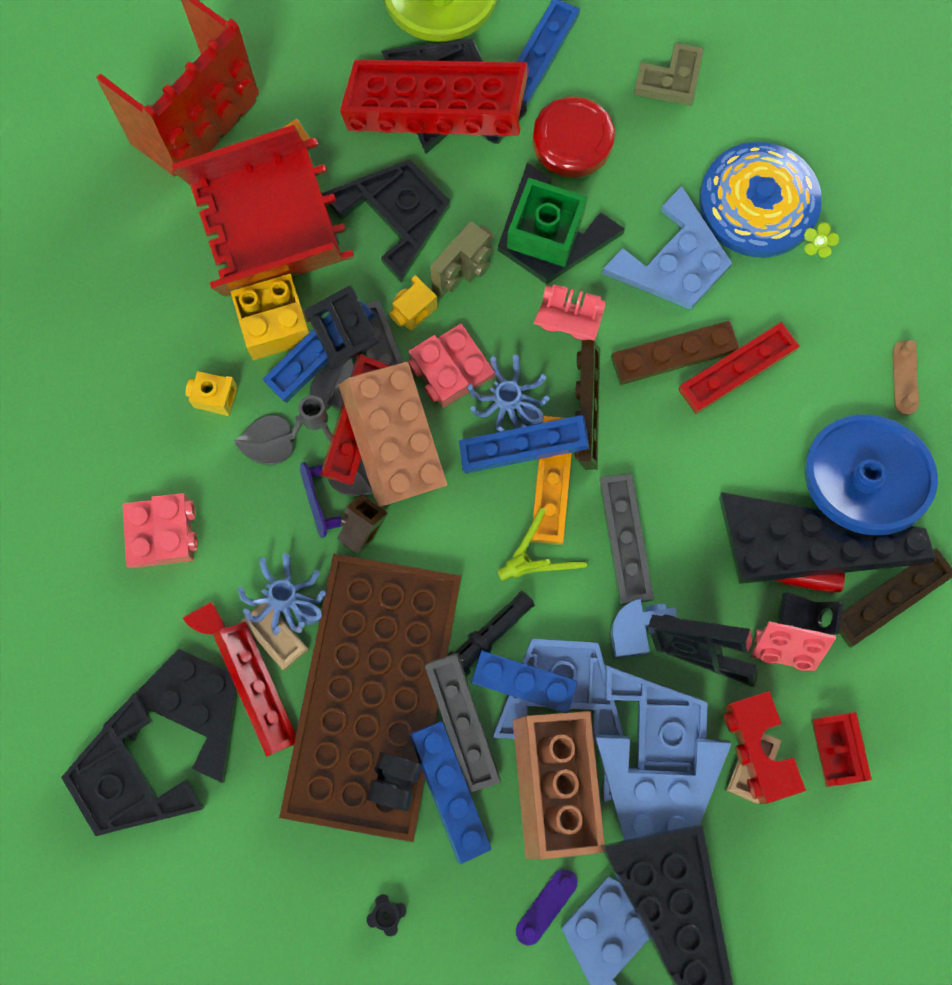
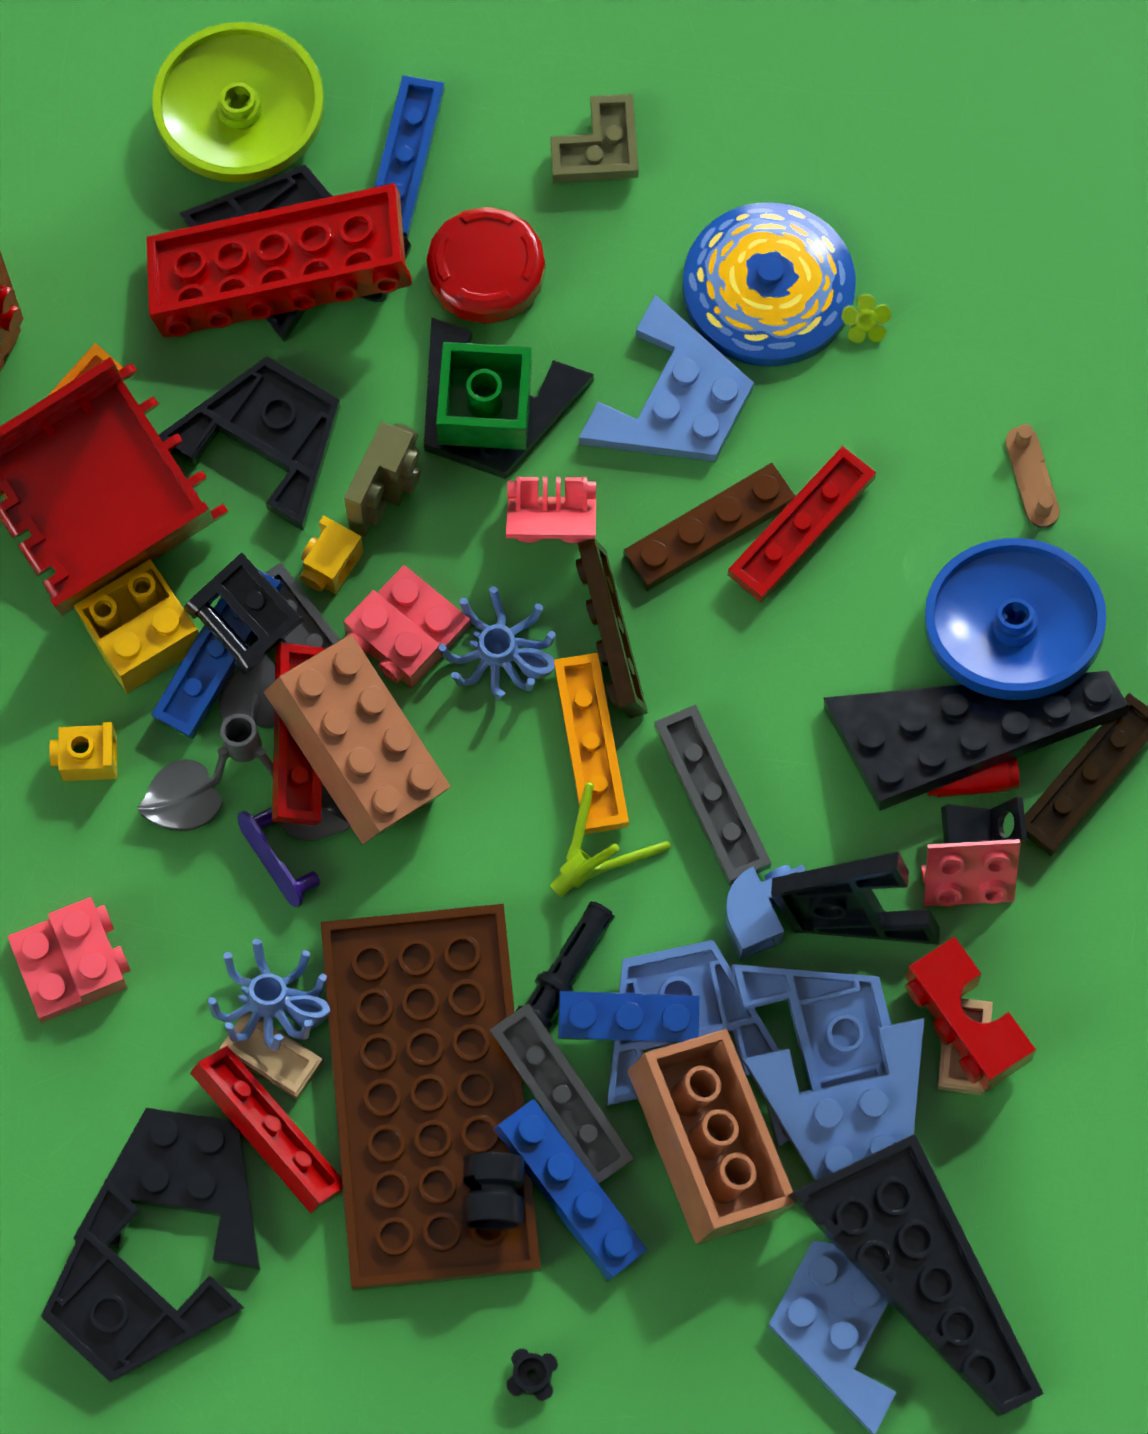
camera: 15 degrees left, 5 degrees down
(205, 620) = (169, 1061): red tile -> none
(361, 523) = (347, 871): dark brown brick -> none
(524, 444) = (538, 705): blue plate -> none
(546, 907) = (742, 1305): dark purple piece -> none
(841, 749) = (1073, 990): red hinge -> none

